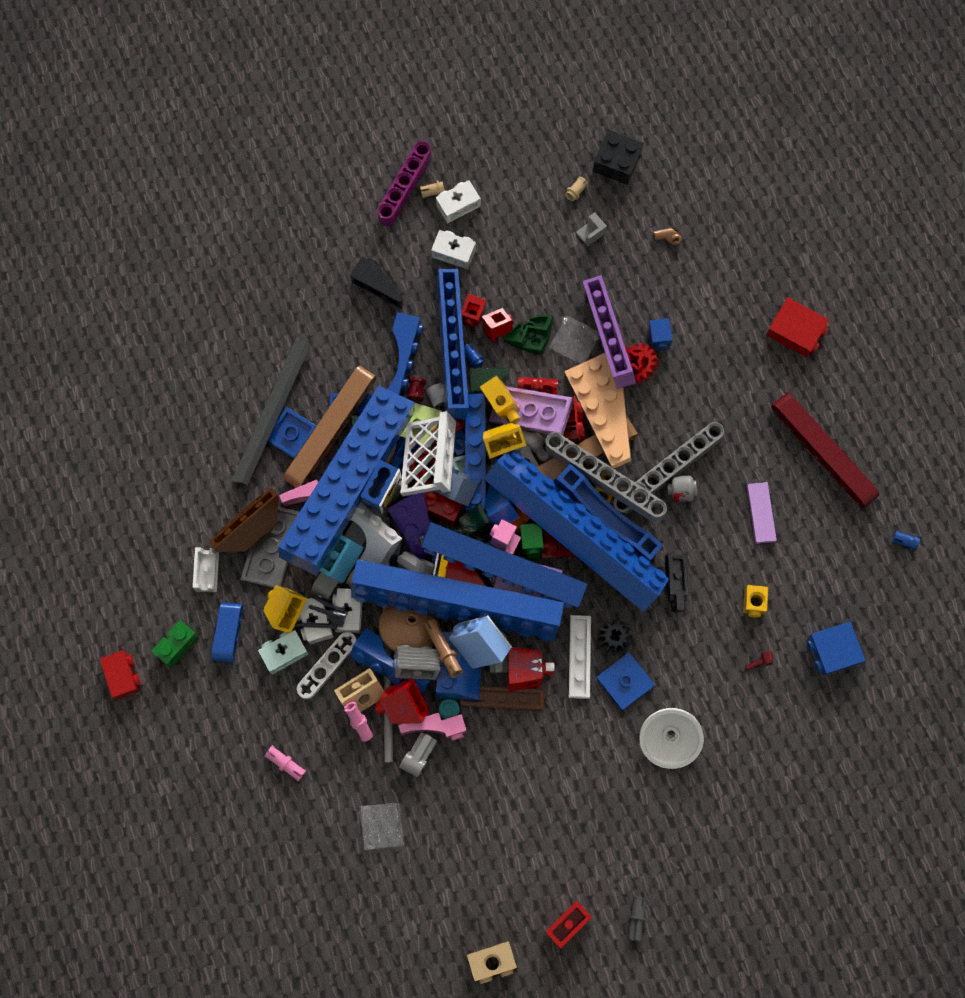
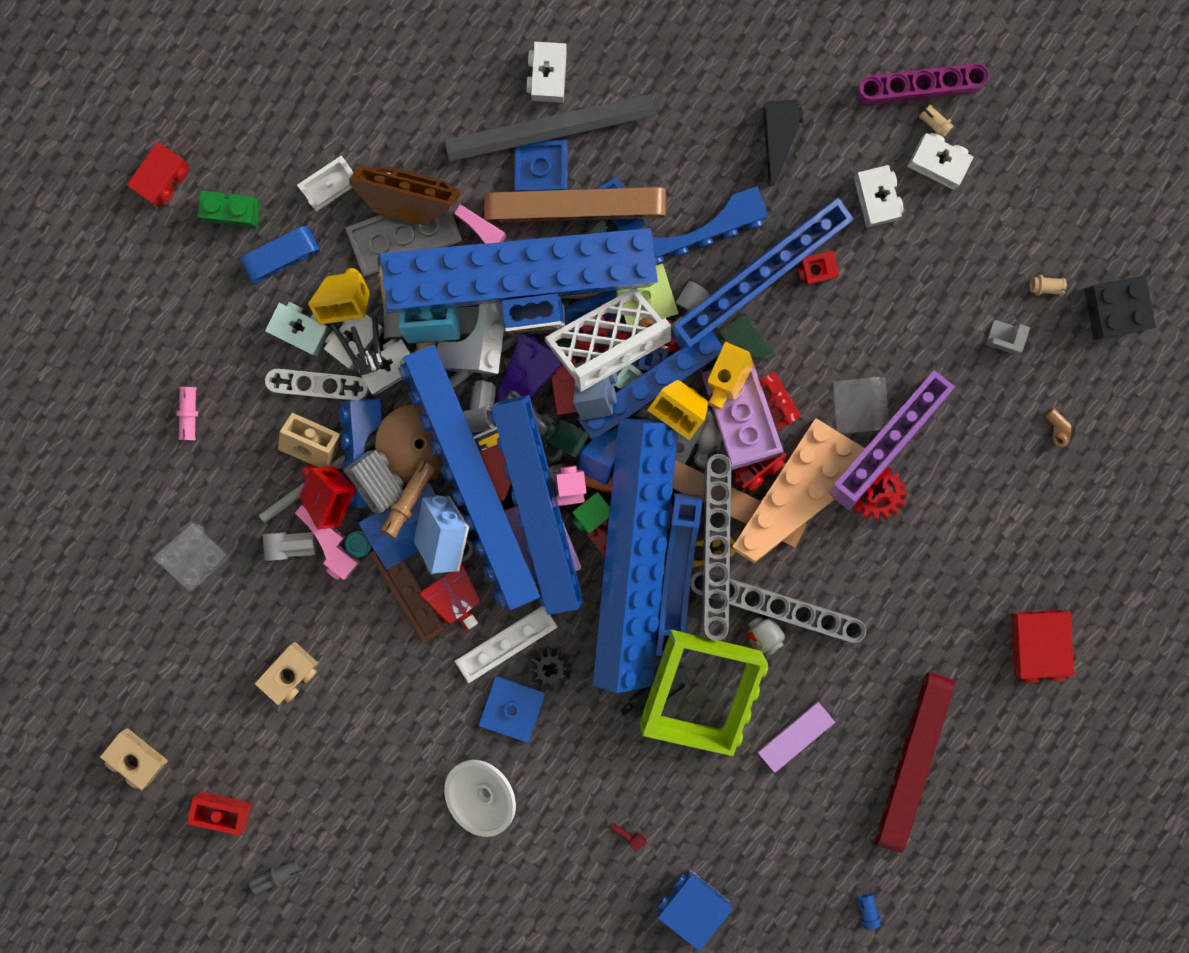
camera: 55 degrees right, 15 degrees up
(232, 381) = (547, 56): none -> white brick
(358, 721) = (277, 460): bright pink pin -> none
(416, 395) = (692, 268): dark red bush -> none
(473, 357) = (764, 305): blue pin -> none
(495, 803) = (275, 684): none -> tan brick
(497, 324) = (820, 306): red brick -> none
(532, 335) = (835, 354): dark green brick -> none
(660, 334) = (930, 496): blue brick -> none
(722, 534) = (695, 735): none -> lime piece
(761, 594) = (702, 795): yellow brick -> none

